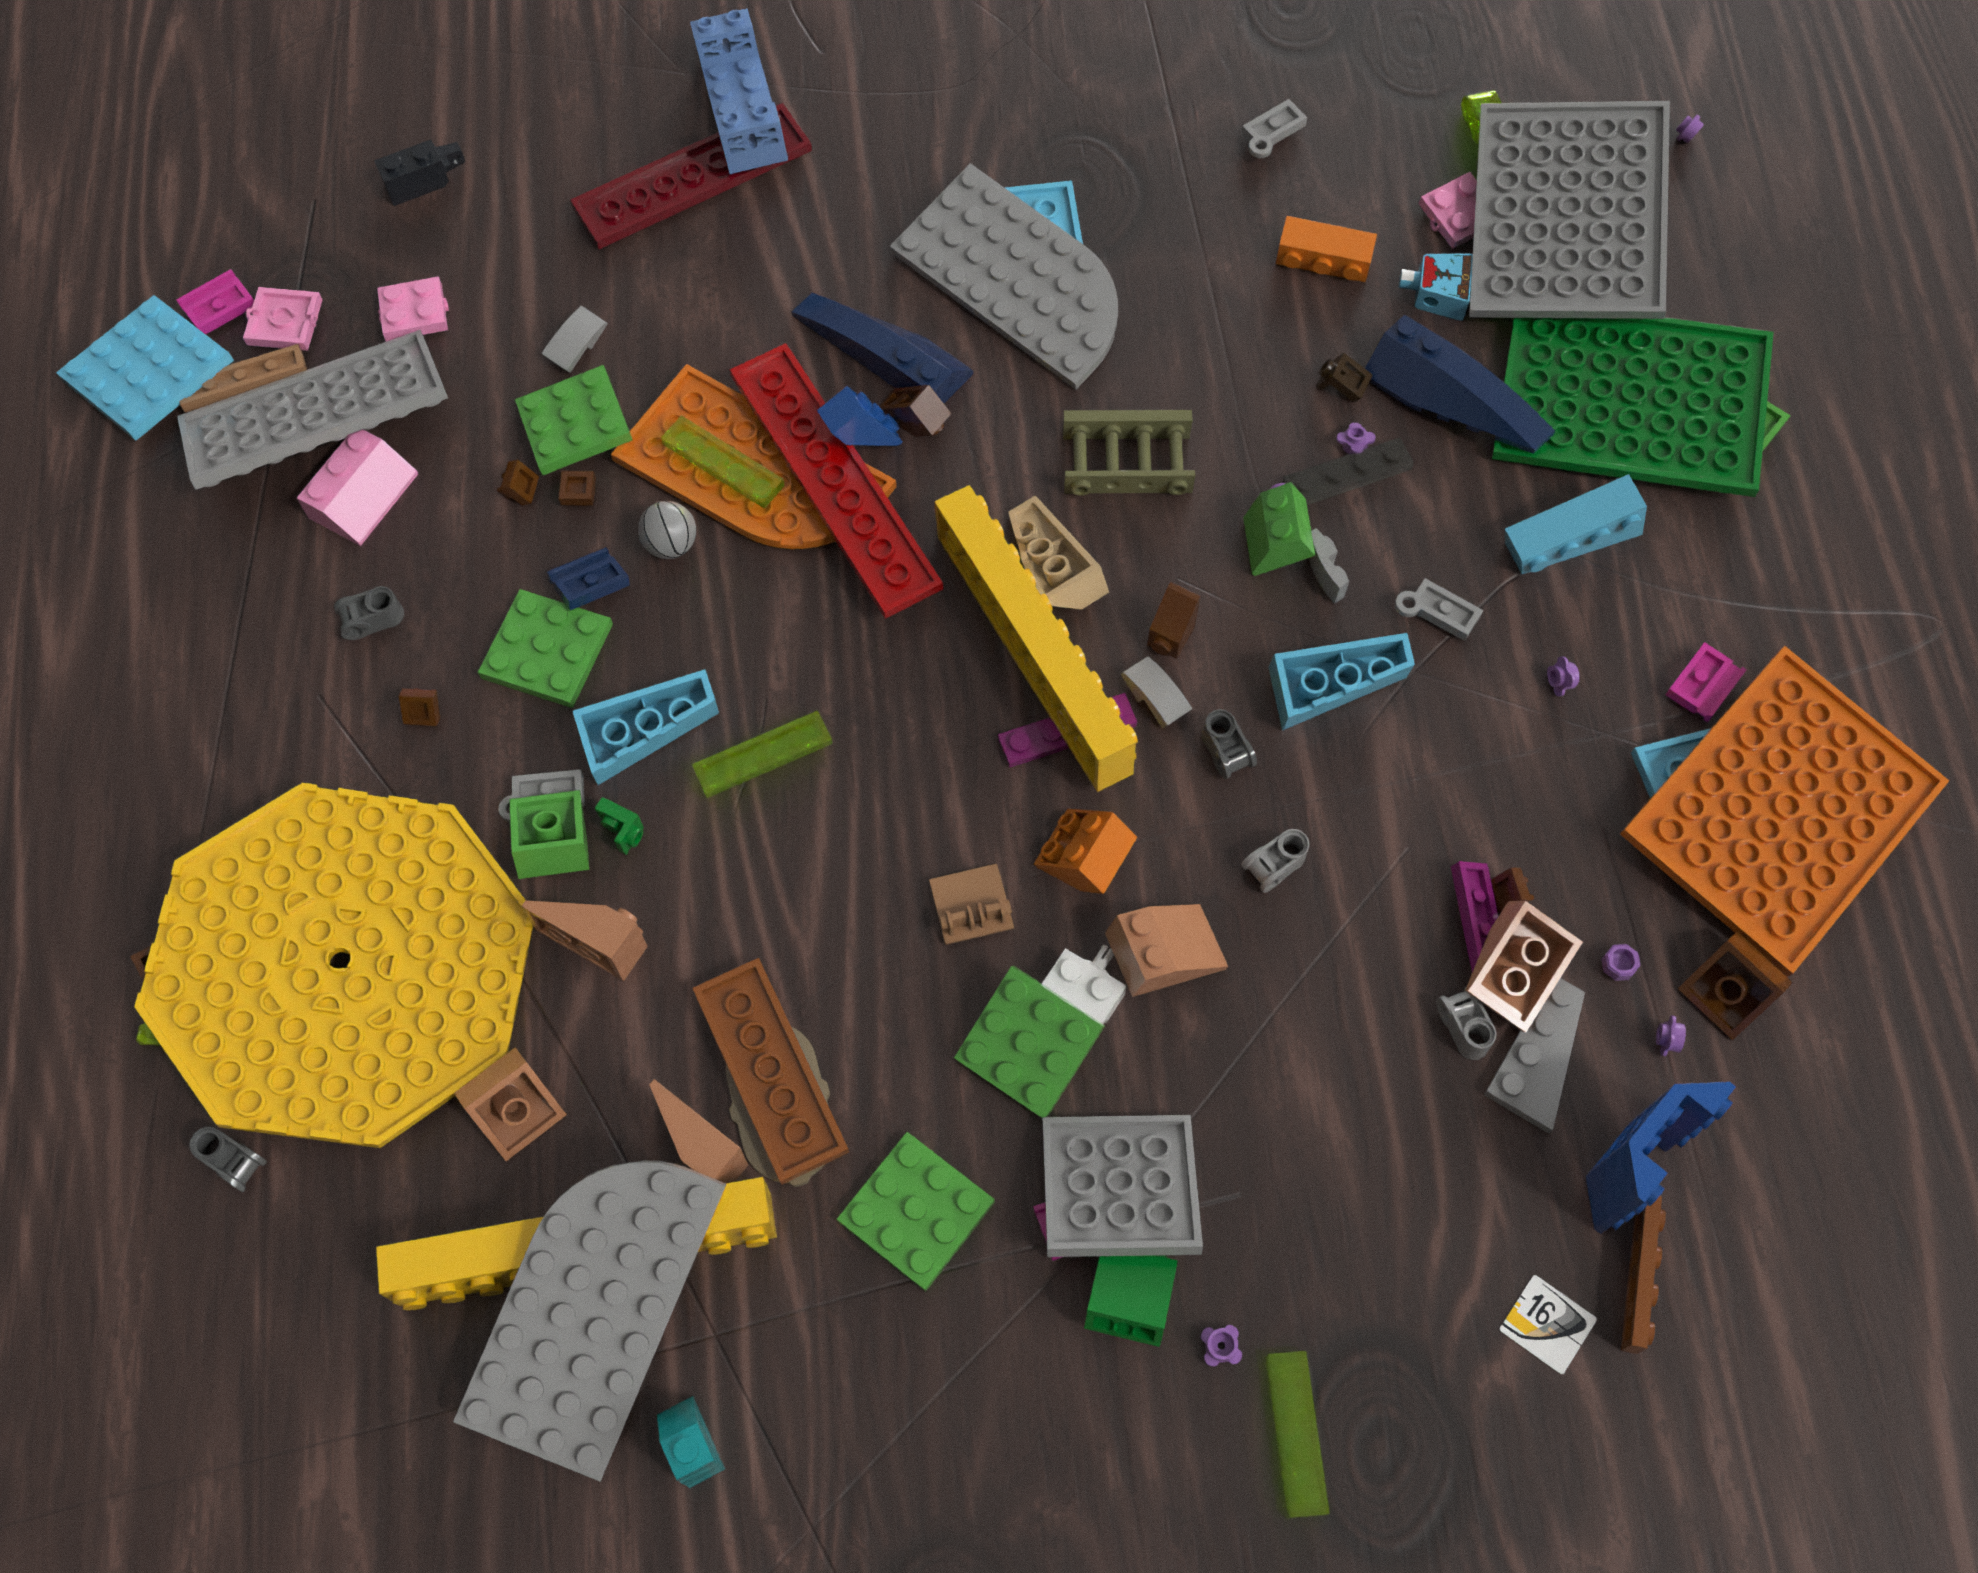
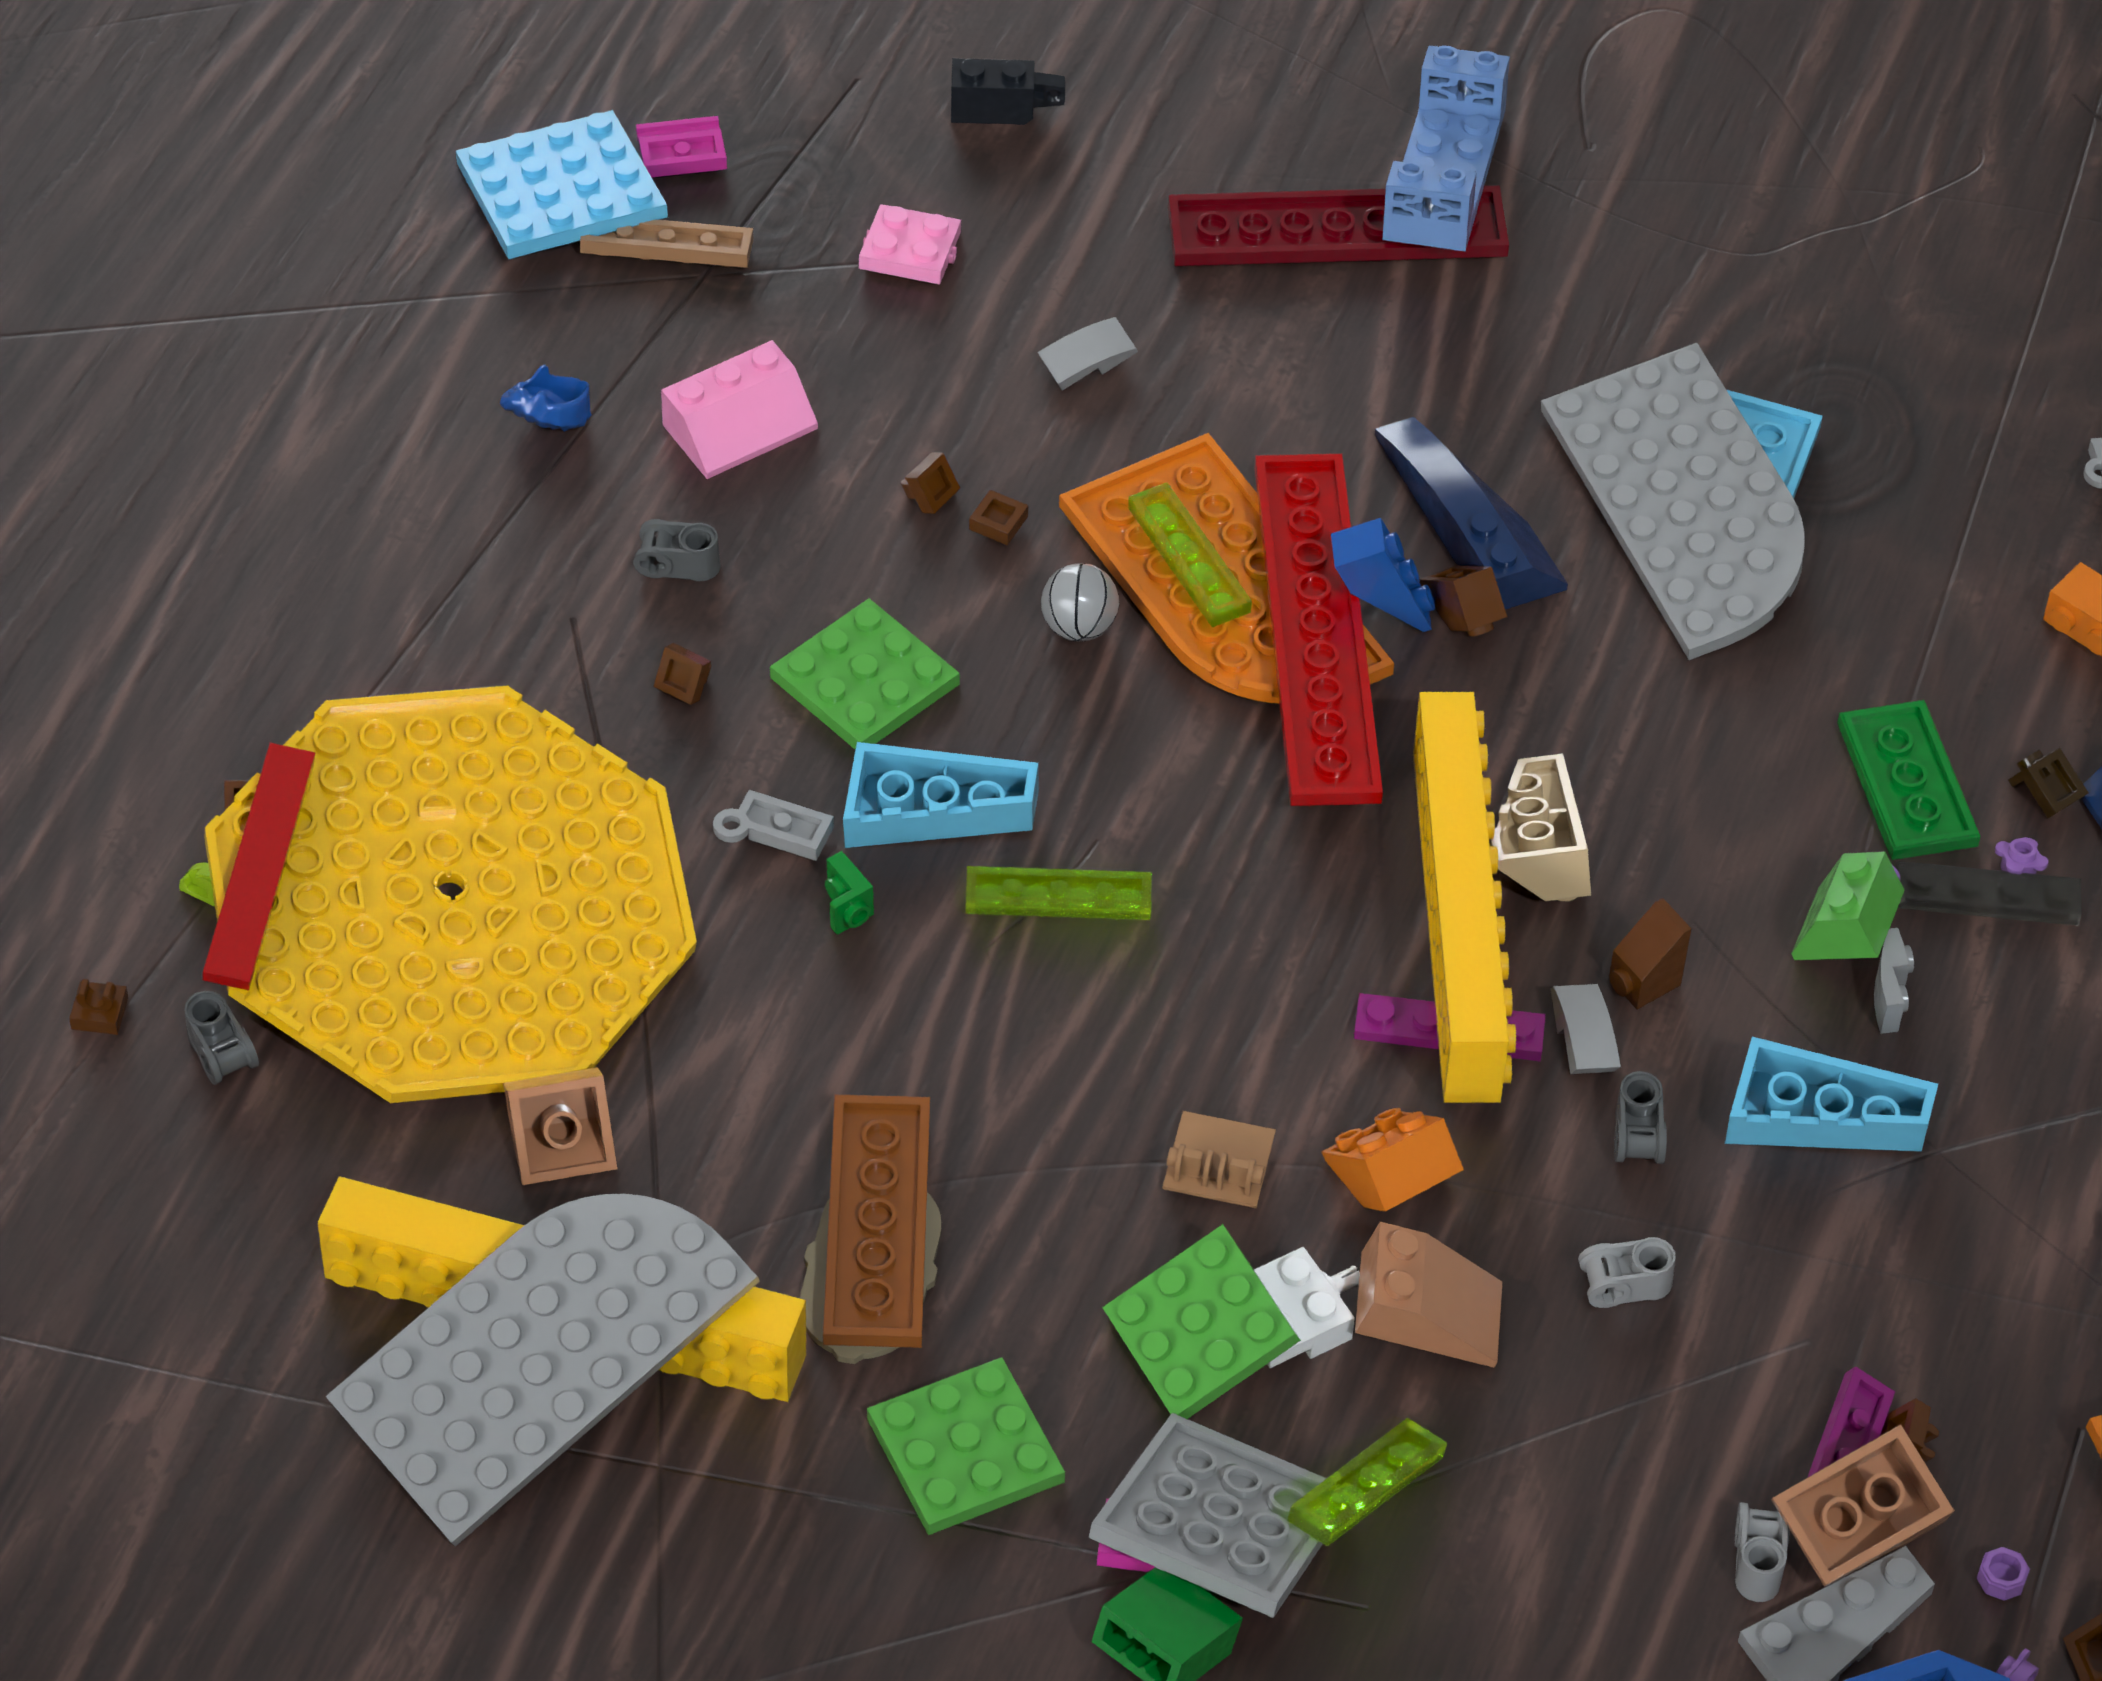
camera: 25 degrees right, 15 degrees down
(125, 1171) = (98, 1007): none -> reddish brown tile
(191, 1020) = (259, 866): none -> red tile
(219, 537) = (550, 400): none -> blue hair
(282, 318) = (749, 193): bright pink plate -> none
(309, 409) = (730, 302): light grey plate -> none
(548, 834) = (757, 867): bright green slope -> none
(573, 420) = (1035, 440): bright green plate -> none
(588, 578) = (956, 619): dark blue plate -> none
(591, 931) = (749, 985): nougat slope -> none
(688, 1443) = (571, 1548): teal slope -> none
(697, 1141) = (754, 1231): nougat slope -> none
(1128, 425) = (1722, 719): olive fence -> none
(1201, 1110) = (1366, 1482): none -> clear neon green plate
(1256, 414) = (1908, 780): none -> green tile
(1440, 608) = (2012, 1090): light grey hinge -> none

